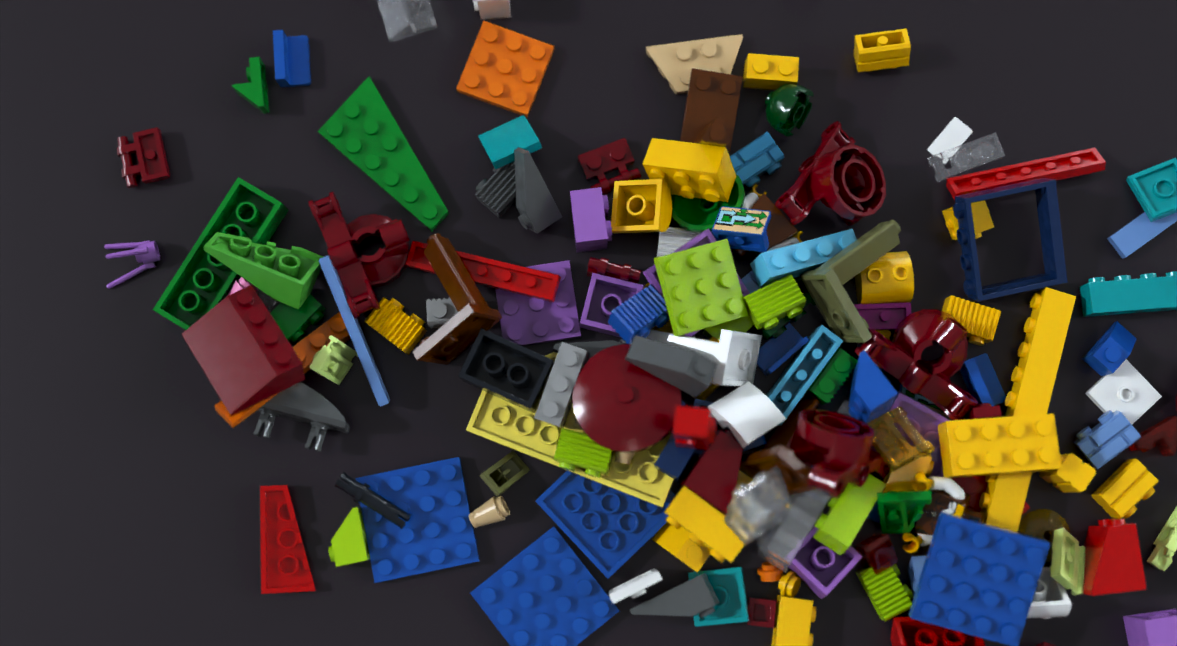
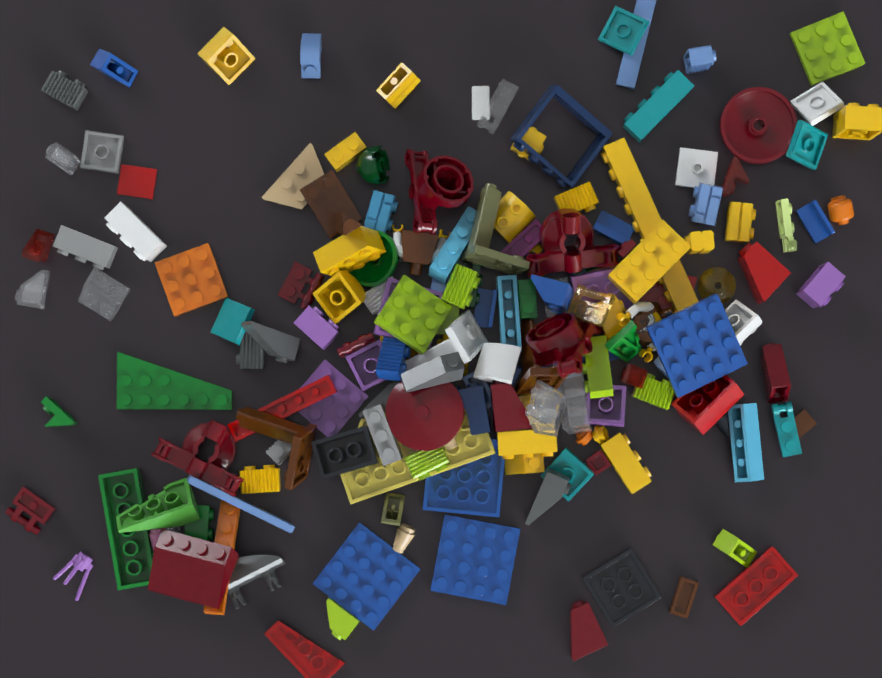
camera: 40 degrees left, 5 degrees up
(291, 59) = (63, 380): blue panel -> none
(333, 360) = (244, 530): yellowish green plate -> none
(374, 501) = (333, 587): black pin -> none
(635, 586) = (517, 508): white plate -> none
(694, 427) = (475, 399): red arch -> none
(743, 228) = (407, 260): panel -> none
(1053, 167) = (547, 76): red plate -> none
(1068, 561) = (739, 291): yellowish green plate -> none
(1110, 350) = (668, 148): blue slope -> none

